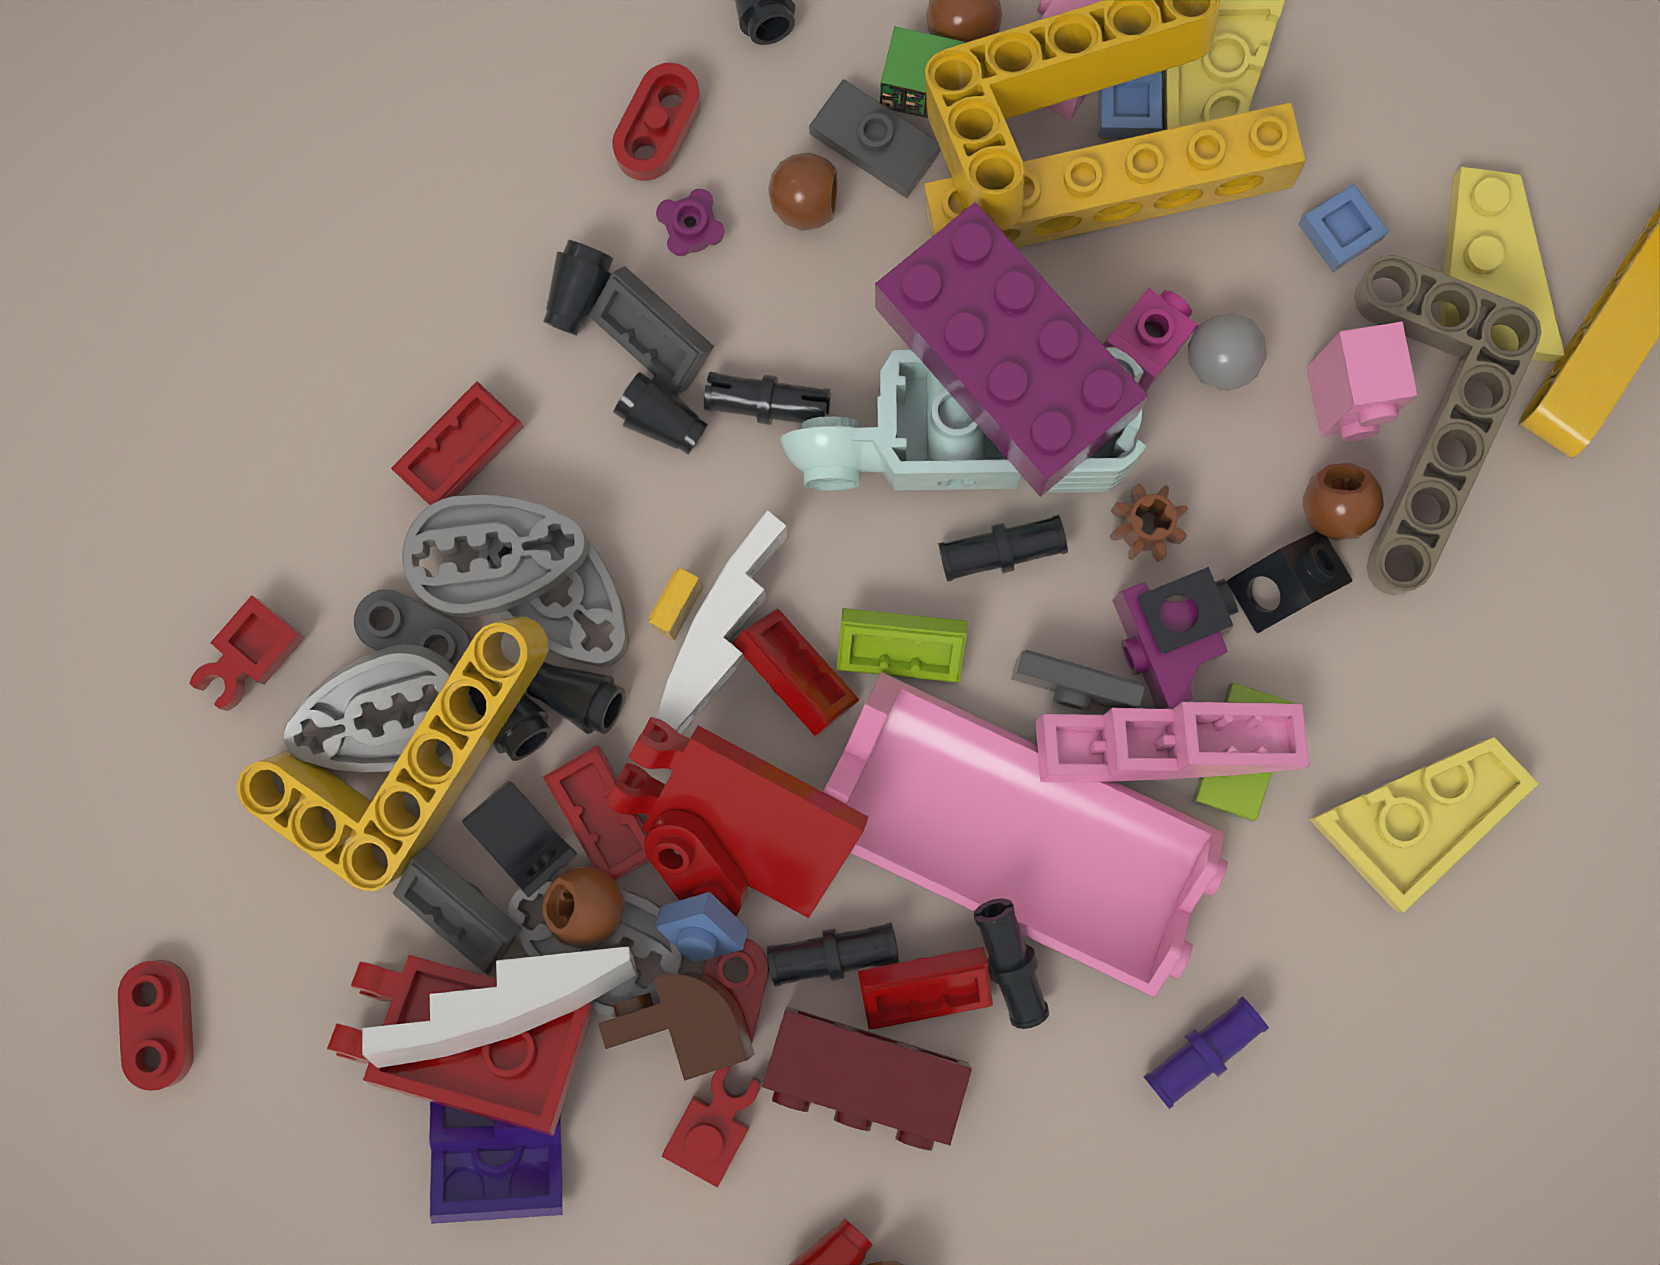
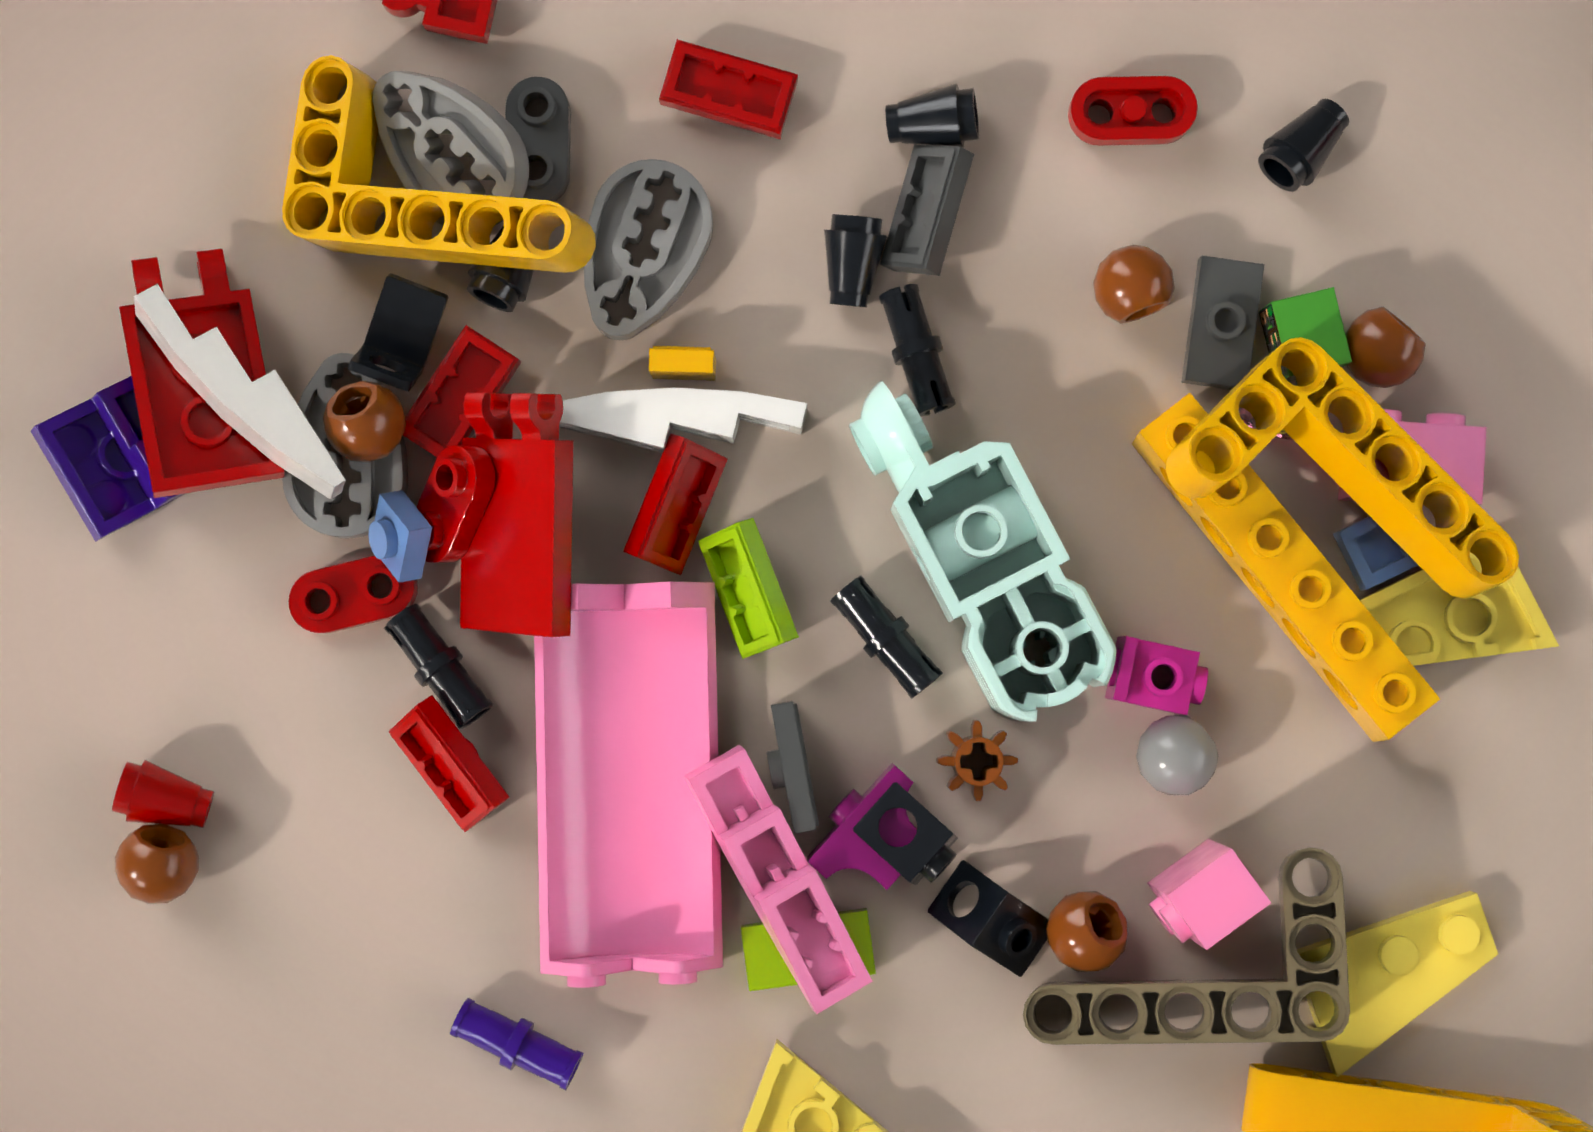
camera: 65 degrees right, 5 degrees up
(160, 1025) = (82, 103): red plate -> none
(456, 910) = (310, 310): dark grey plate -> none
(478, 520) = (665, 144): light grey piece -> none
(581, 697) = (555, 320): black cone -> none
(693, 239) = (1049, 210): magenta plate -> none
(700, 1018) = (318, 574): reddish brown brick -> none
(709, 1132) = (229, 635): red plate -> none
(866, 1079) = (343, 749): dark red brick -> none
(1008, 349) = (1056, 548): magenta brick -> none
(1011, 963) = (507, 829): black pin -> none
(1343, 227) = (1358, 808): medium blue plate -> none

